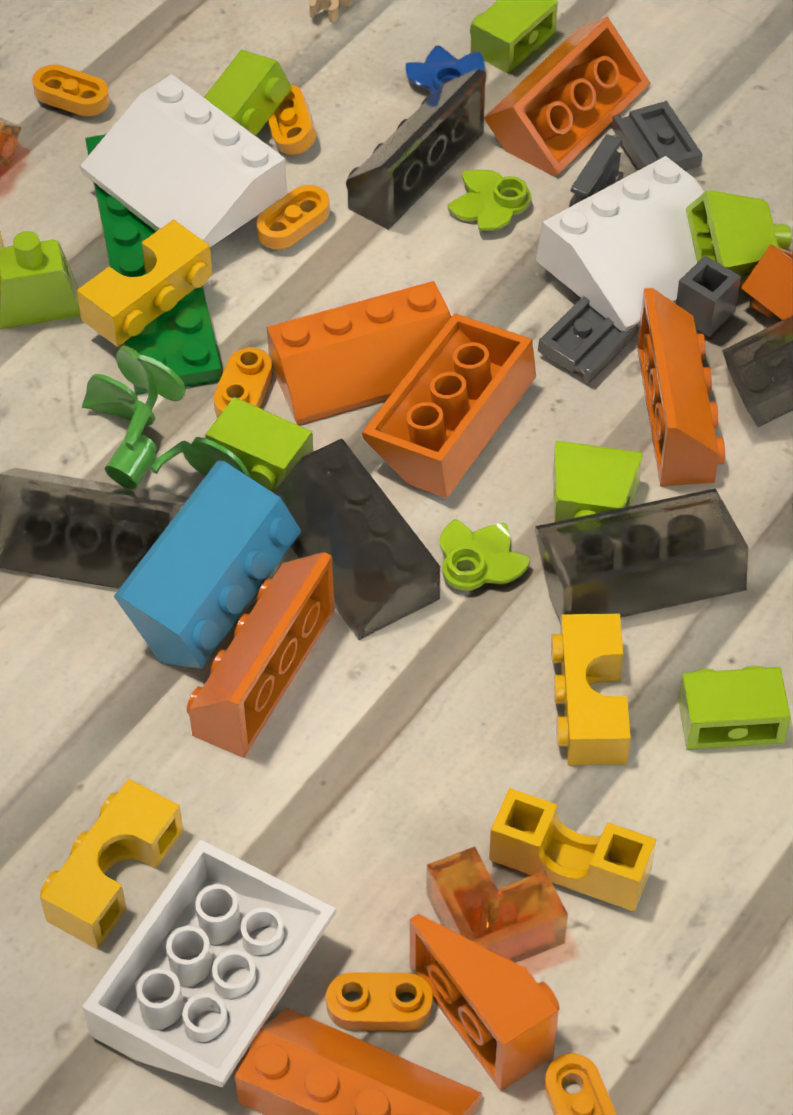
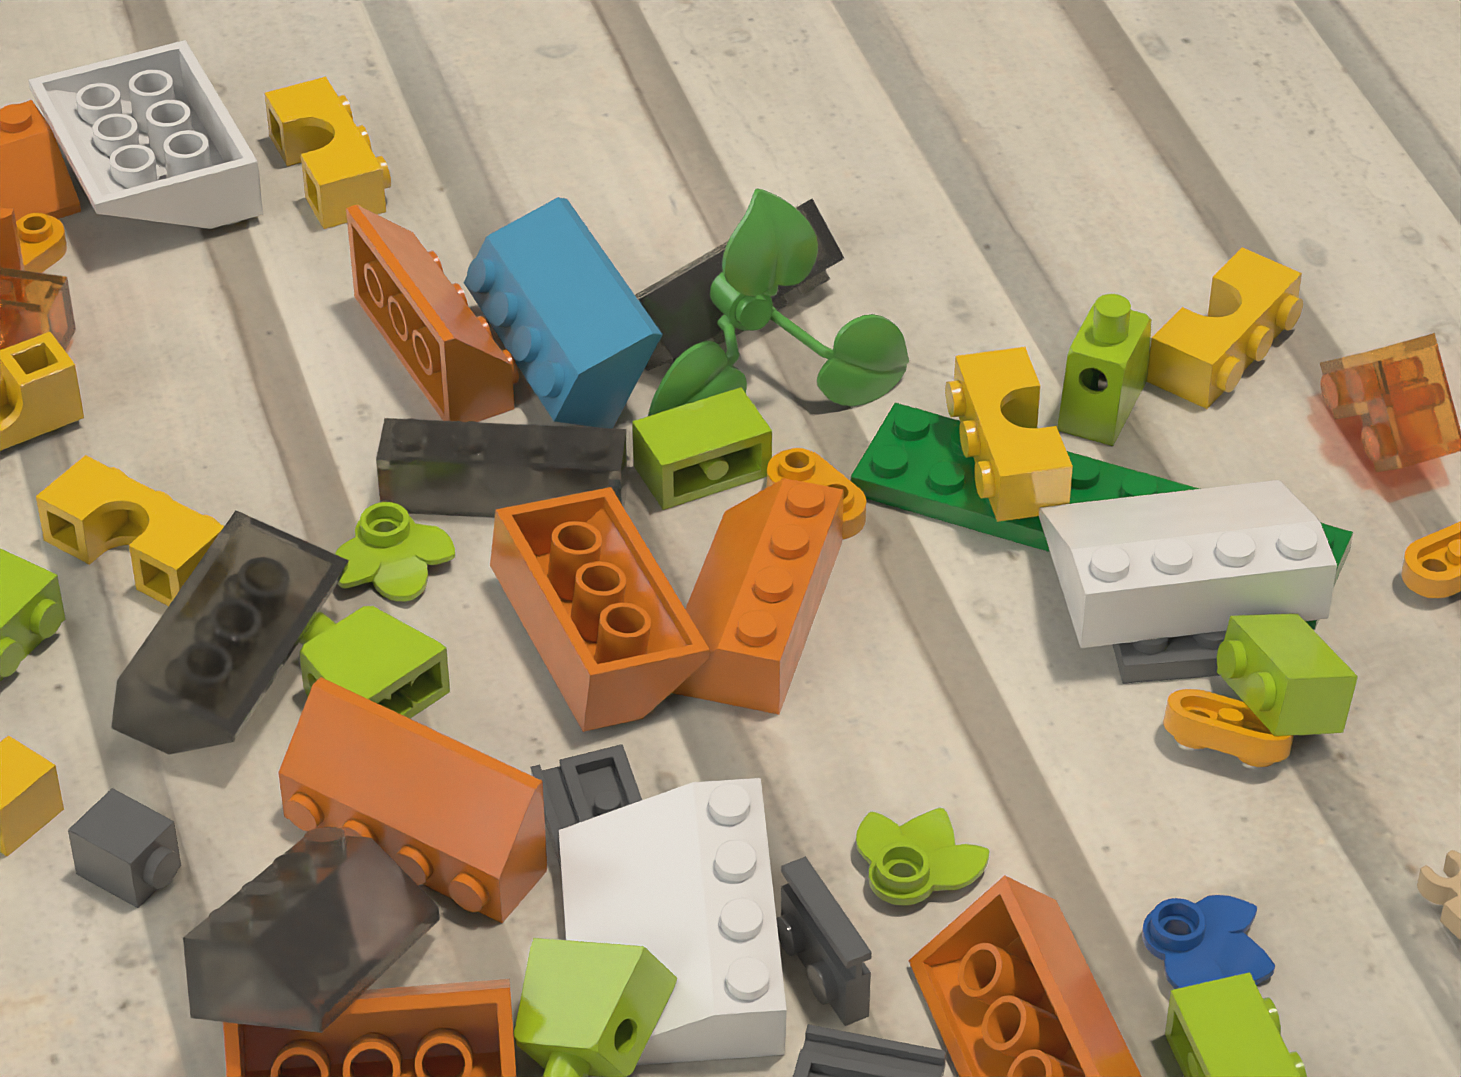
camera: 125 degrees right, 10 degrees down
(293, 217) = (1045, 648): light orange plate -> none
(419, 151) = (1050, 801): clear smoke slope -> none
(708, 294) = (514, 915): dark grey brick -> none

